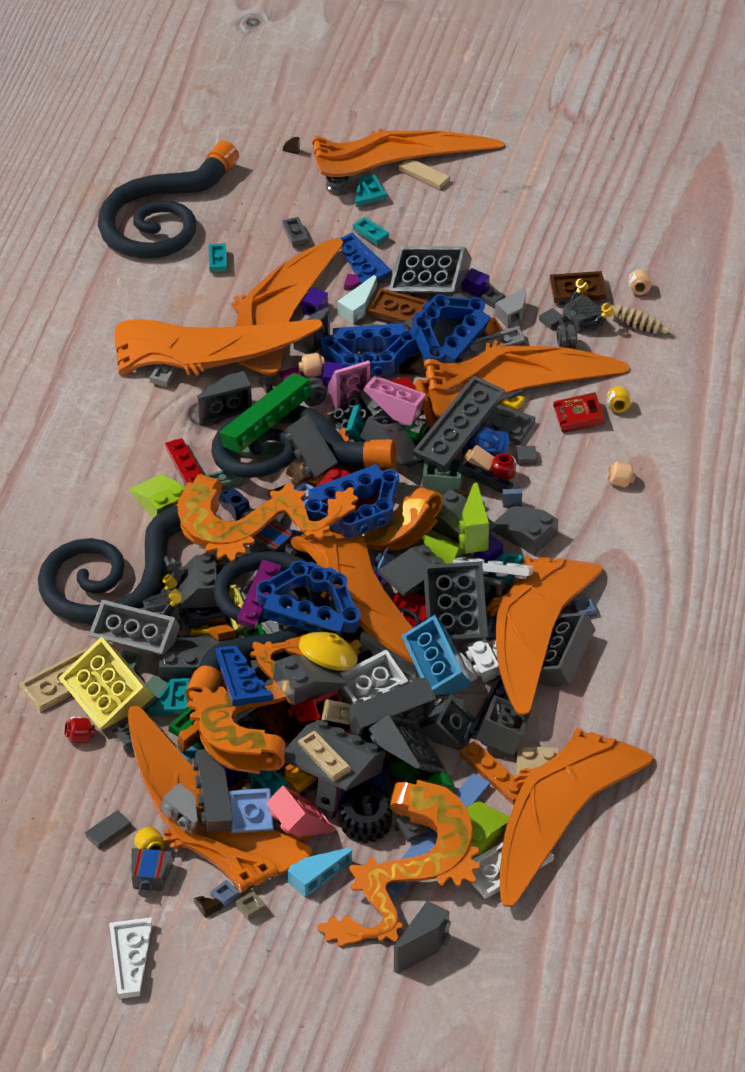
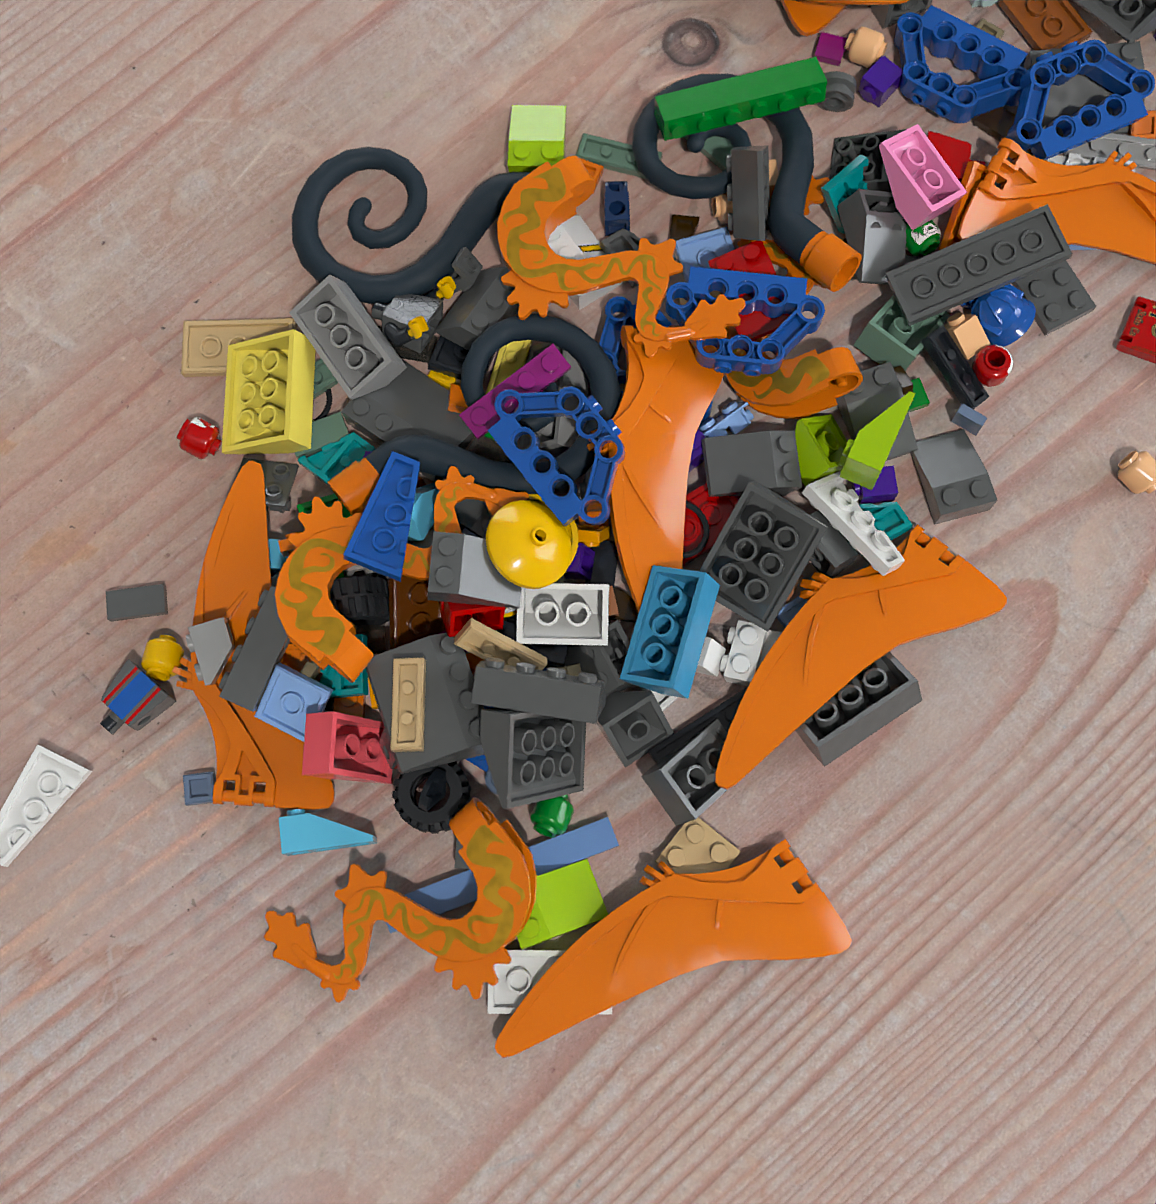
camera: 40 degrees right, 30 degrees up
(183, 460) = (601, 110): red plate -> none
(207, 905) = (168, 790): dark brown tile -> none
(225, 398) = (714, 38): dark grey slope -> none
(250, 905) = (212, 829): dark tan plate -> none
(266, 383) = (791, 41): black tile -> none
(274, 538) = (607, 311): torso -> none
(347, 383) = (882, 113): bright pink slope -> none
(422, 937) = (369, 1029): dark grey slope -> none
(490, 770) = (635, 827): orange plate -> none
(513, 403) = (1085, 264): yellow tile -> none
(526, 455) = (1041, 359): dark grey tile -> none
(585, 605) = (936, 652): sand blue tile -> none

